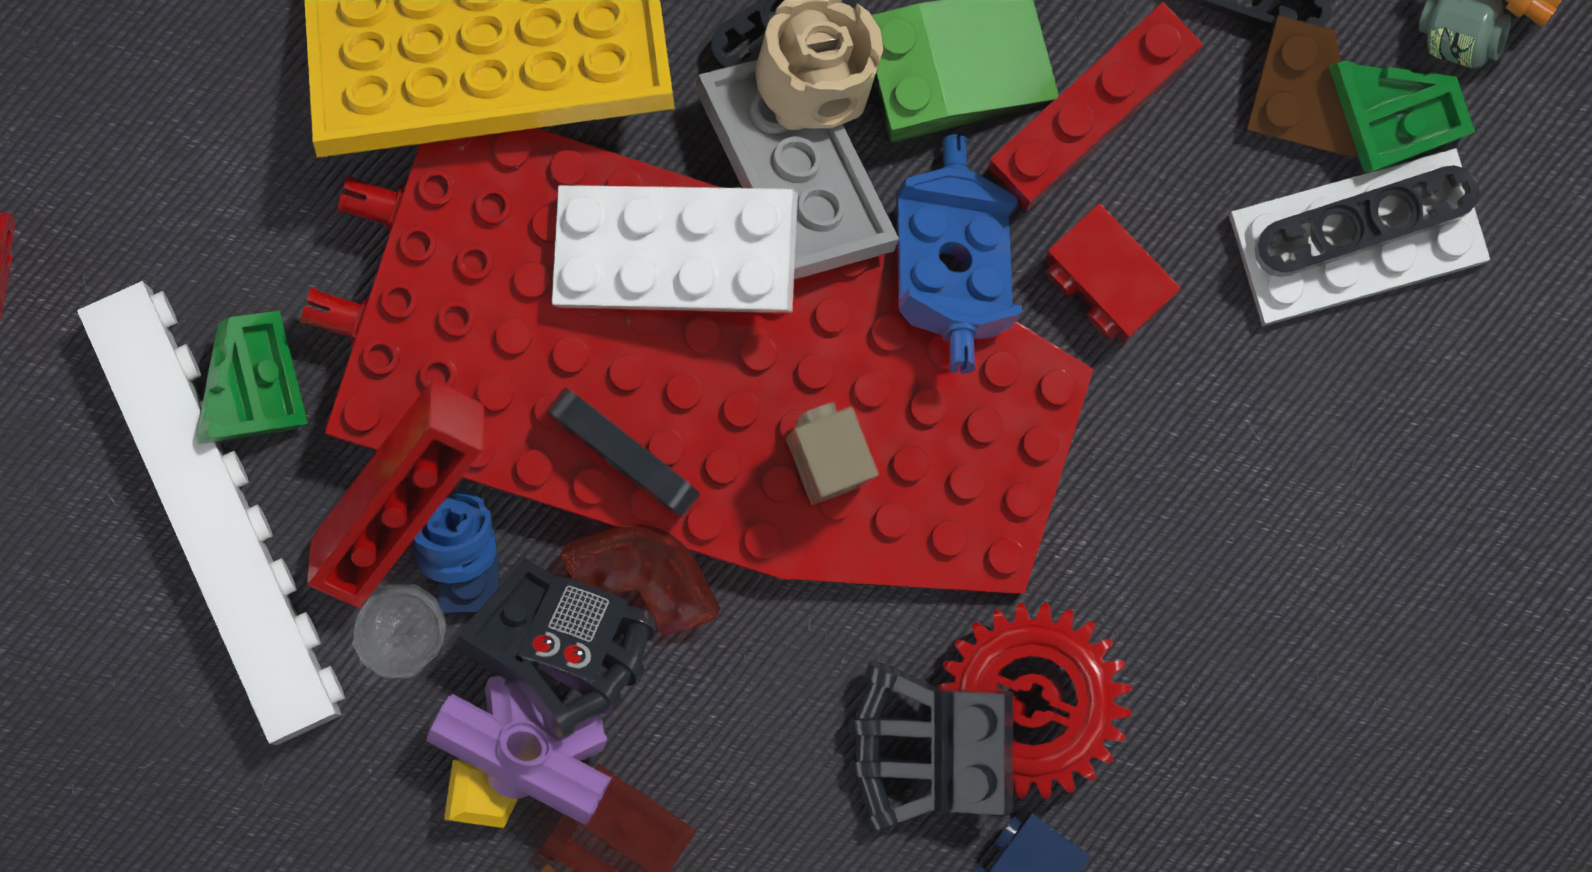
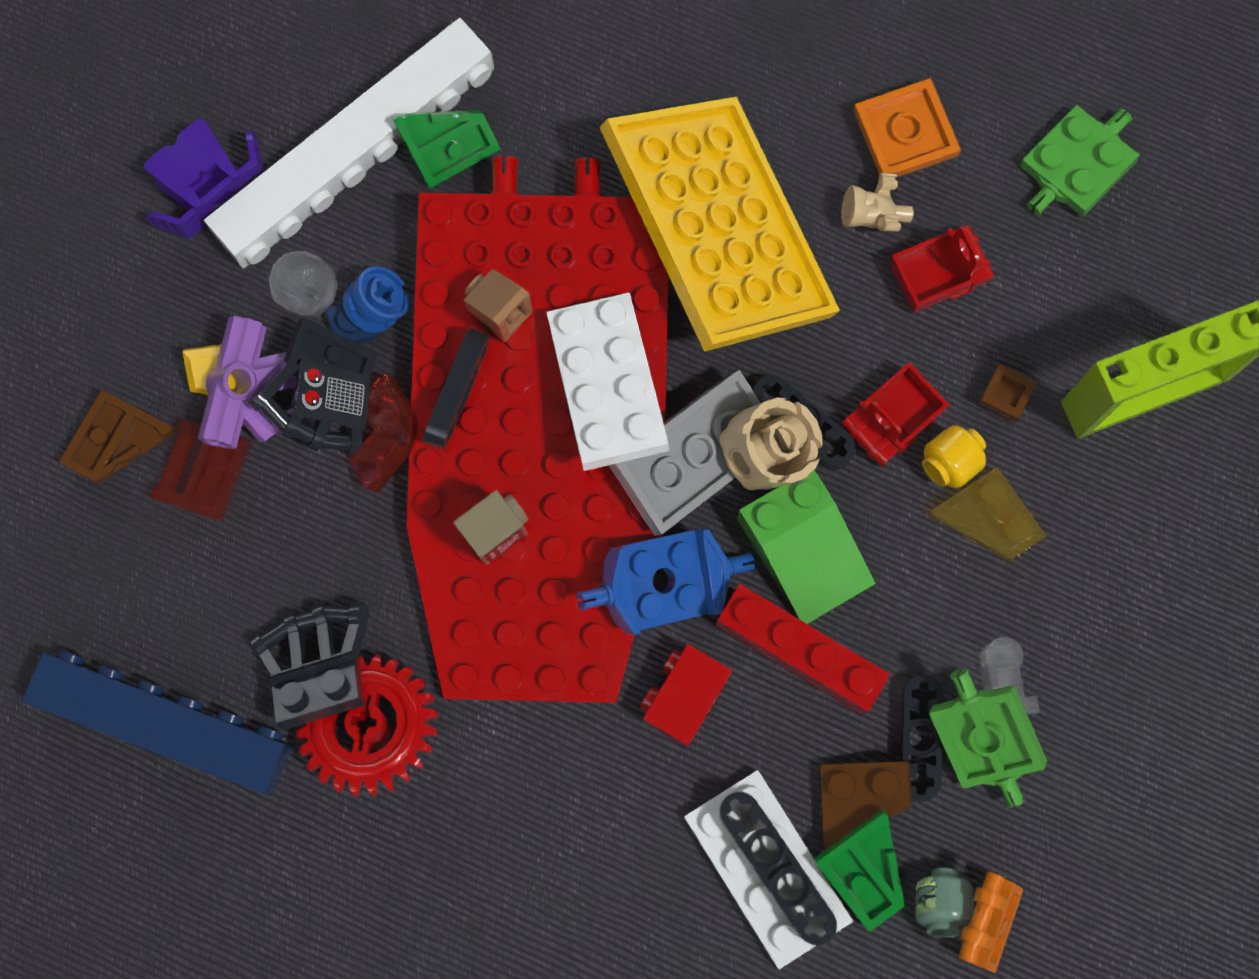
camera: 75 degrees right, 5 degrees down
(200, 734) = (199, 177): none -> dark purple piece
(396, 494) = (387, 247): red brick -> none
(525, 363) = (498, 303): none -> medium nougat slope

